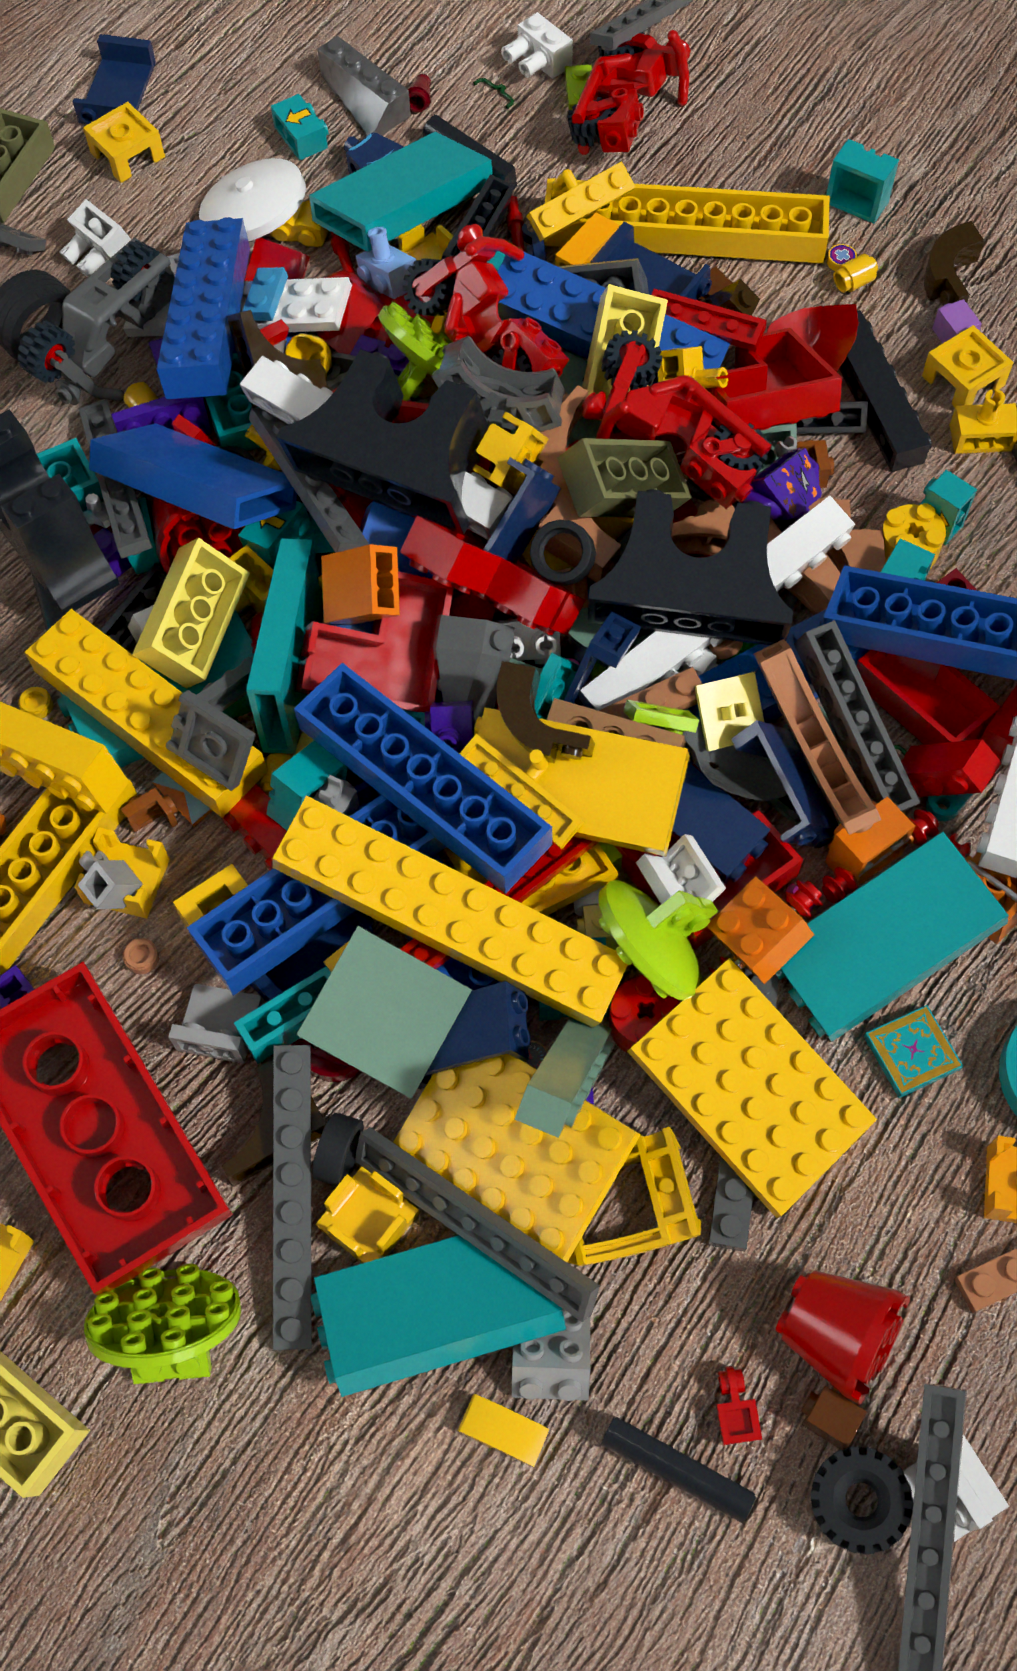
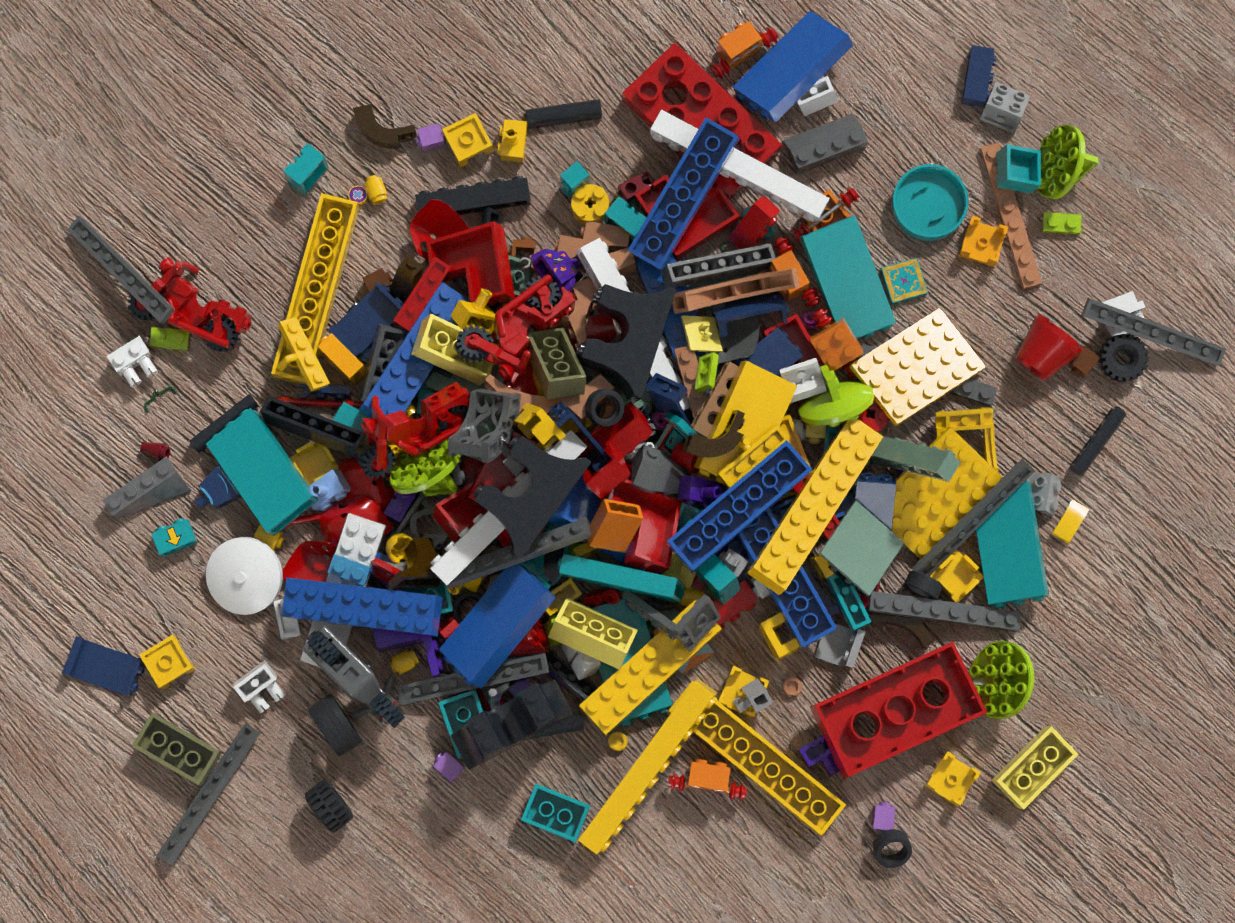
camera: 85 degrees left, 15 degrees up
(147, 808) = (700, 672): dark orange bracket -> none
(738, 1418) = (1078, 407): red plate -> none

